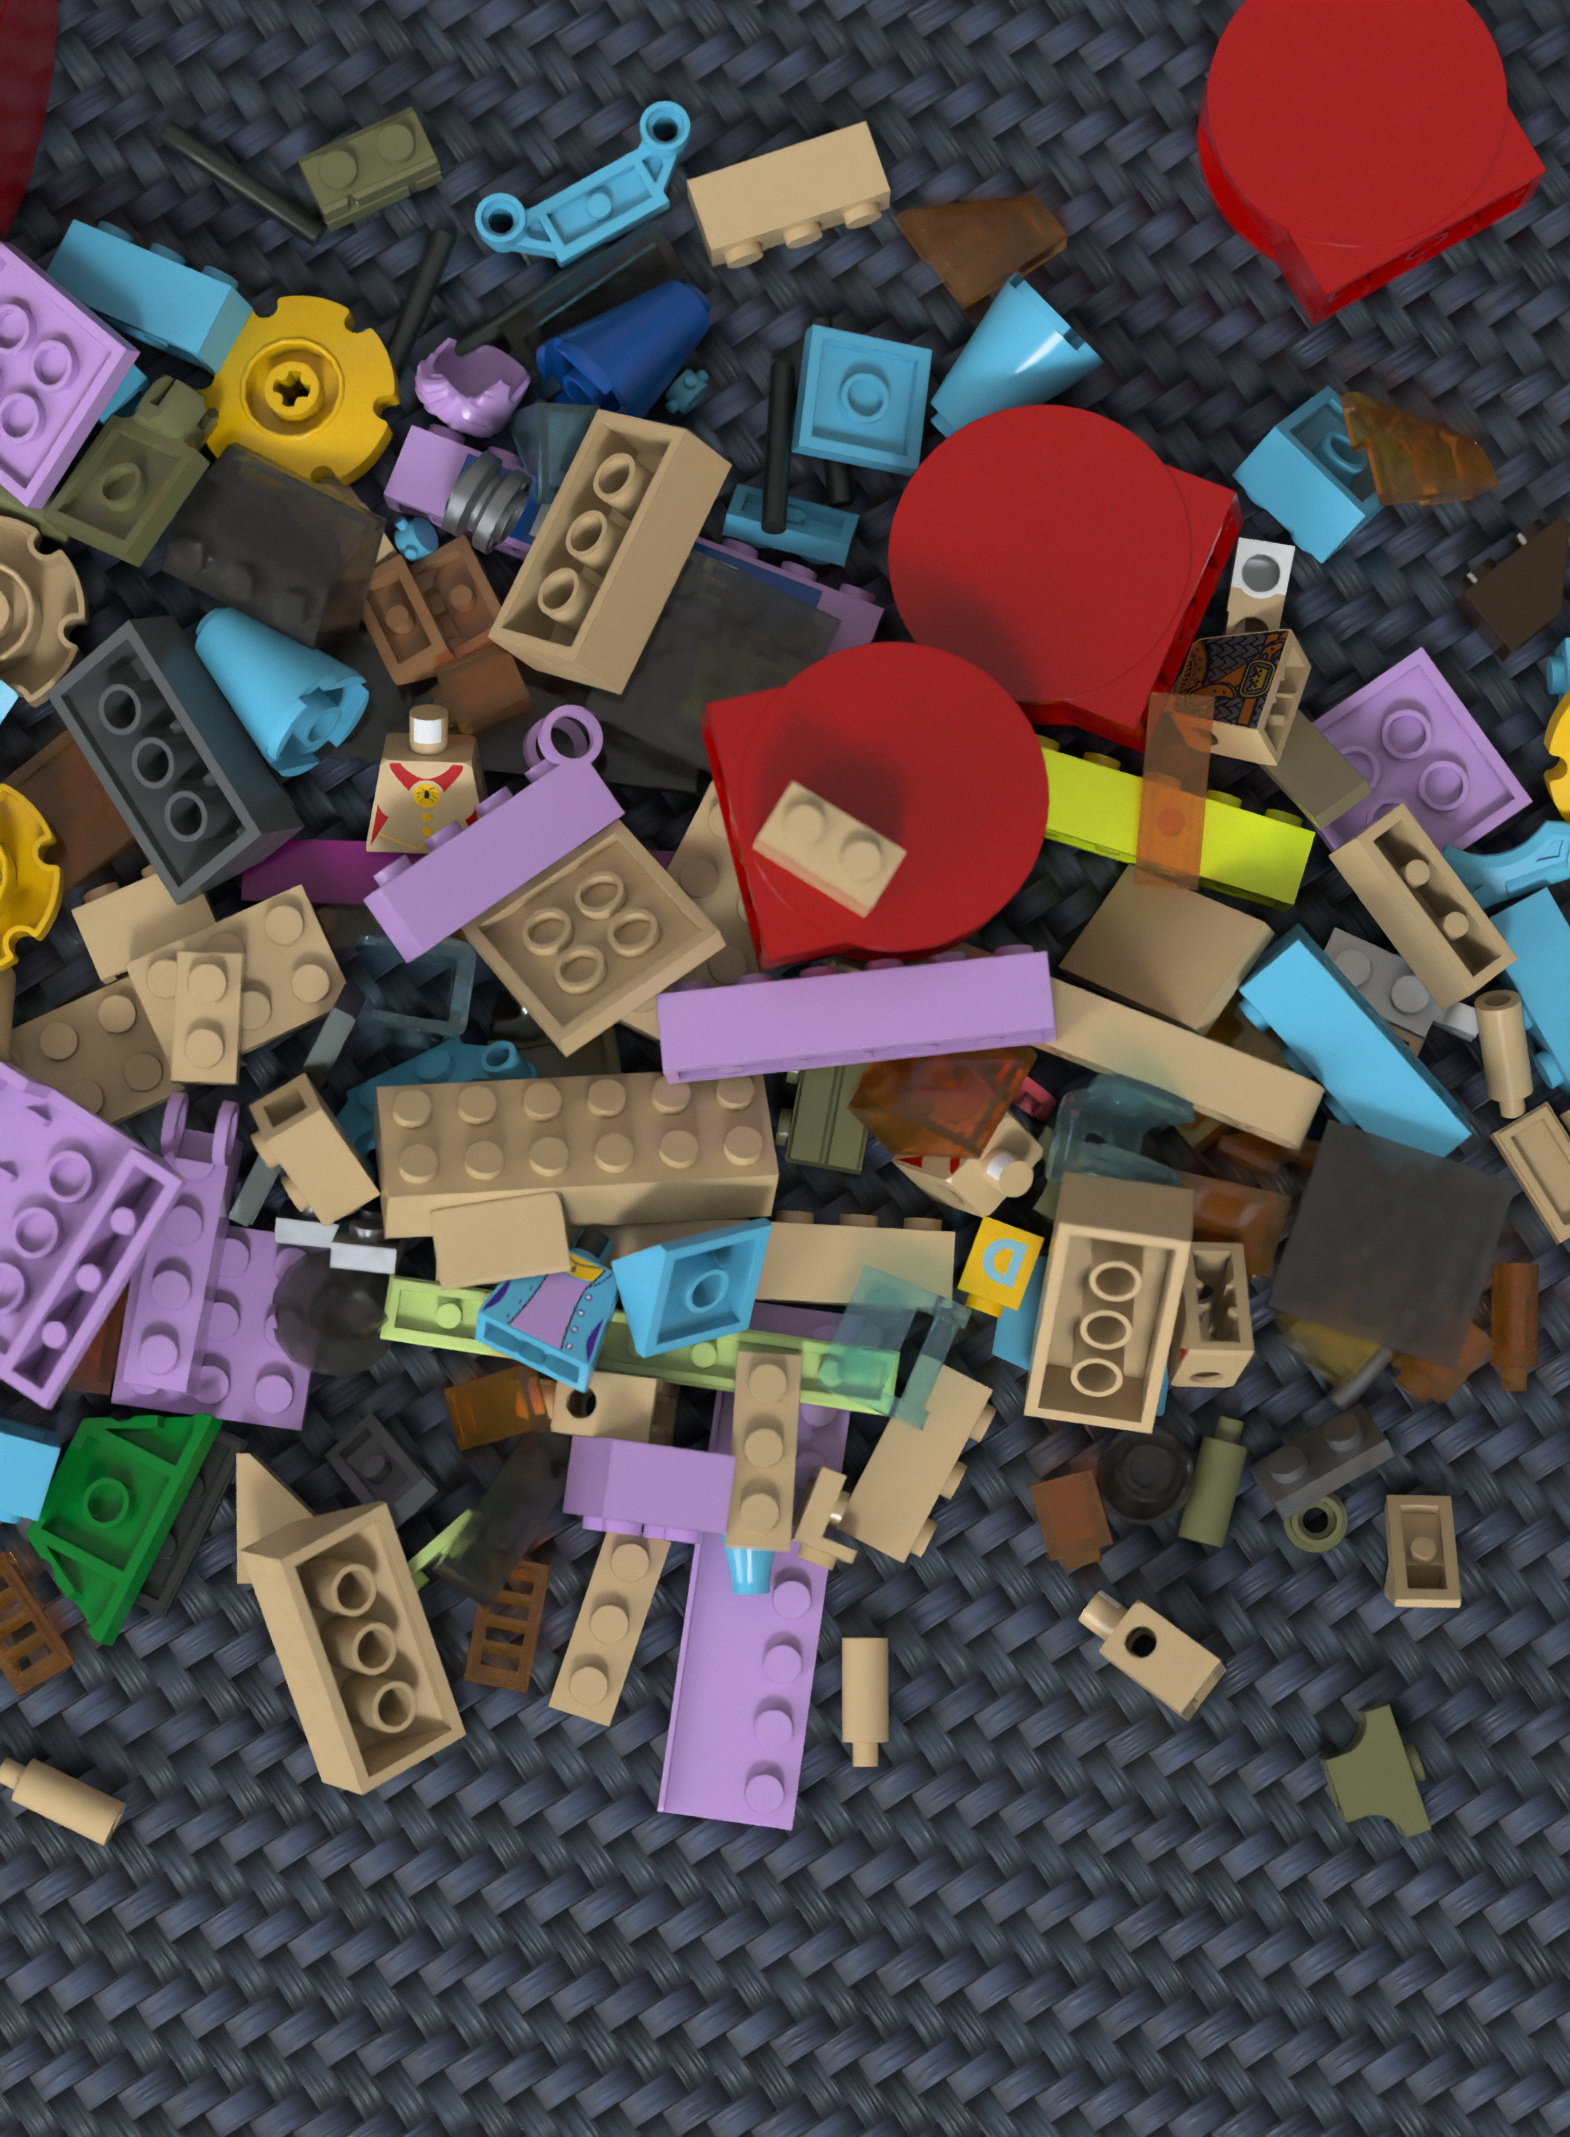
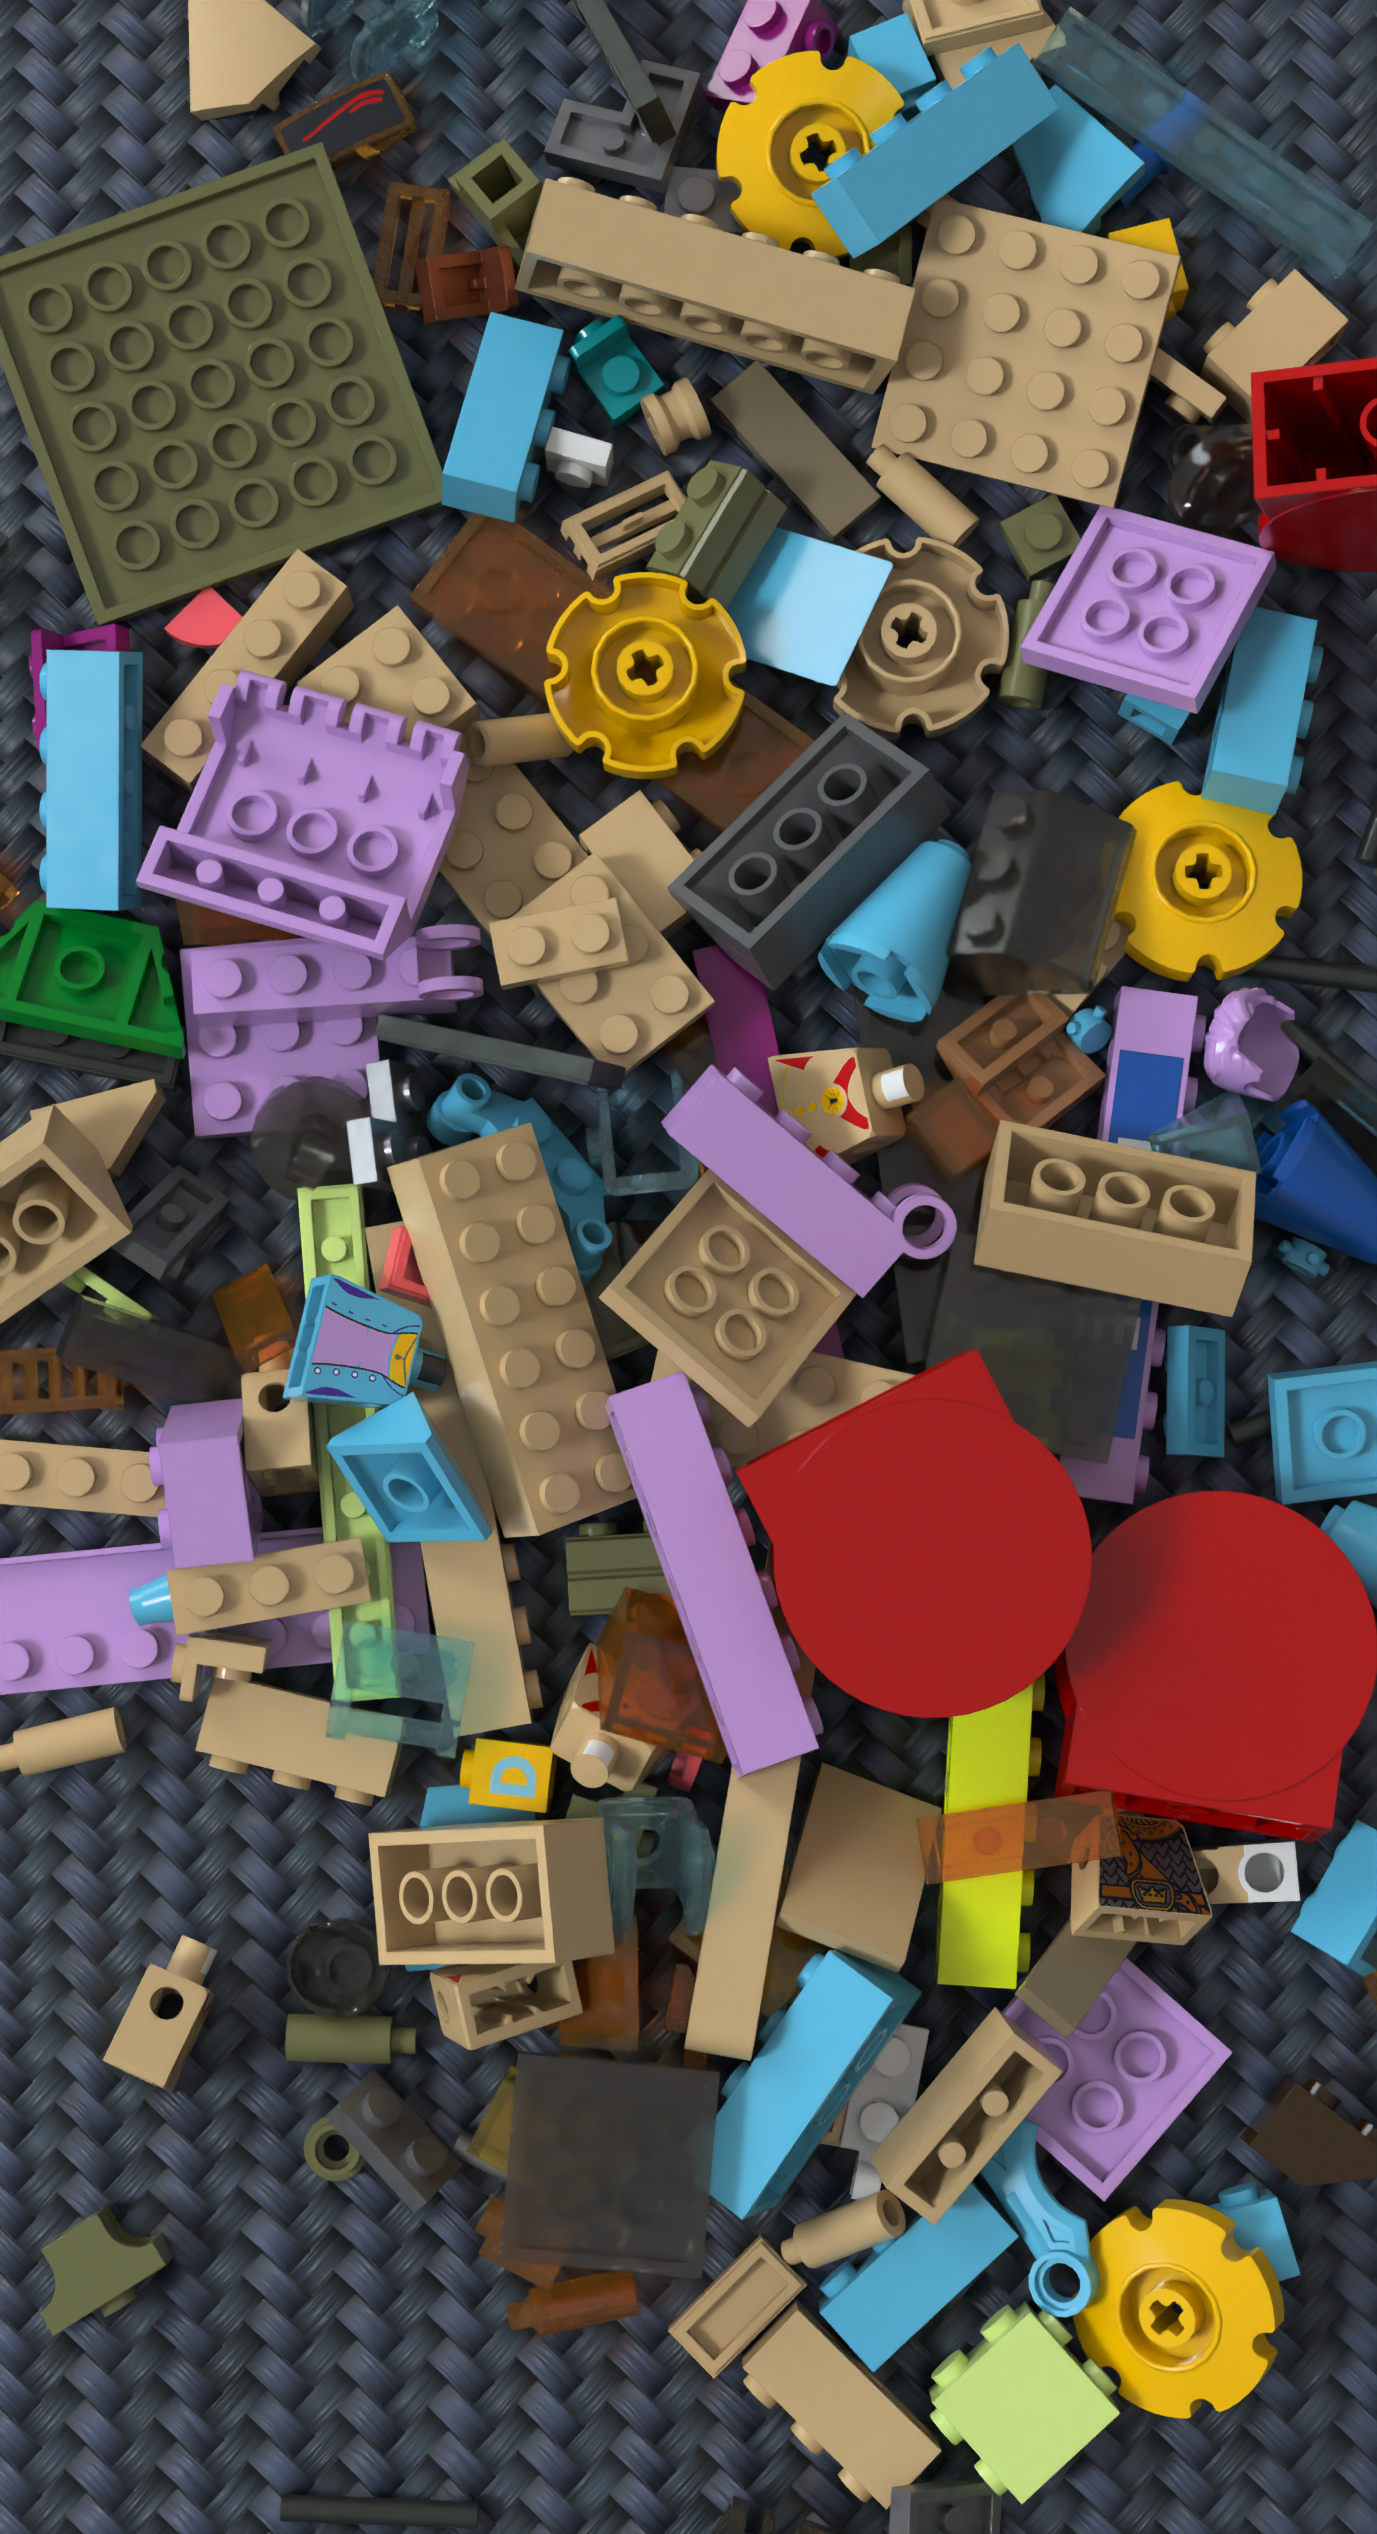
camera: 80 degrees right, 0 degrees up
(137, 473) = (1080, 743): olive plate -> none
(313, 1150) = (454, 1076): tan brick -> none
(486, 502) = (1135, 1086): flat silver wheel -> none
(500, 1240) = (407, 1279): tan slope -> none
(778, 448) = (1268, 1360): pearl dark grey bar -> none
(828, 849) = (857, 1506): tan brick -> none
(1071, 1519) = (280, 1904): clear orange brick -> none
(1421, 1552) = (324, 2262): tan slope -> none

